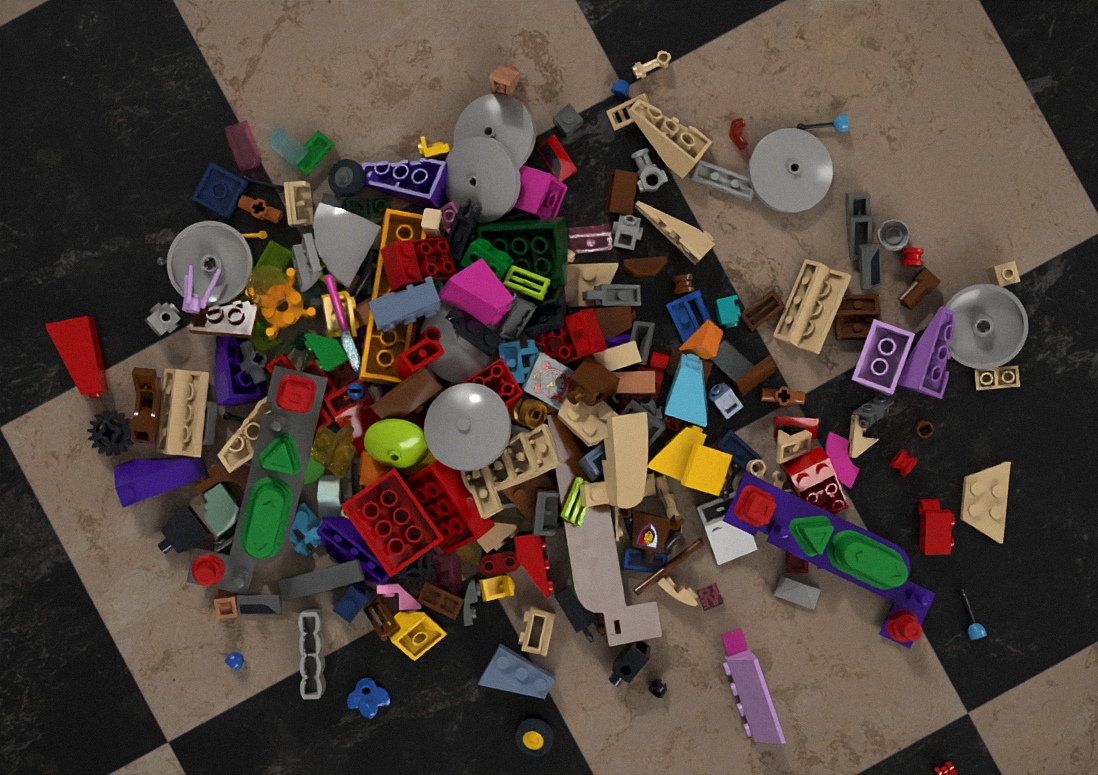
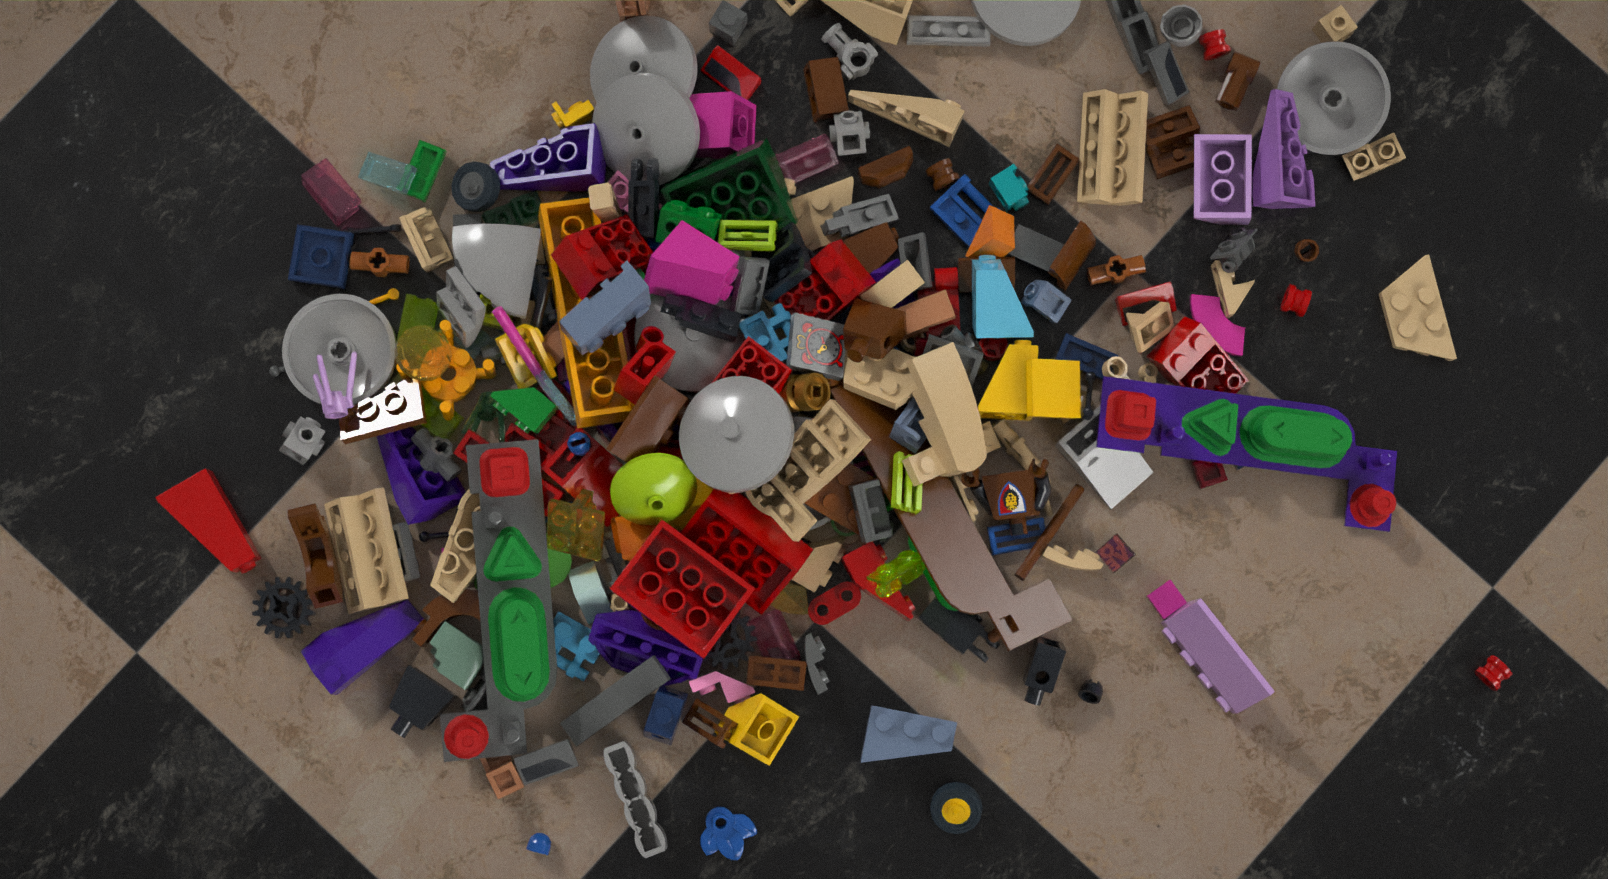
camera: 20 degrees left, 5 degrees down
(497, 587) = (842, 633): yellow bracket -> none
(546, 630) = (924, 668): tan window -> none
(555, 560) = (887, 576): none -> clear neon green hinge
(797, 592) = (1223, 509): light grey slope -> none
(935, 528) = (1365, 367): red hinge -> none
(975, 630) = (1463, 477): hinge -> none

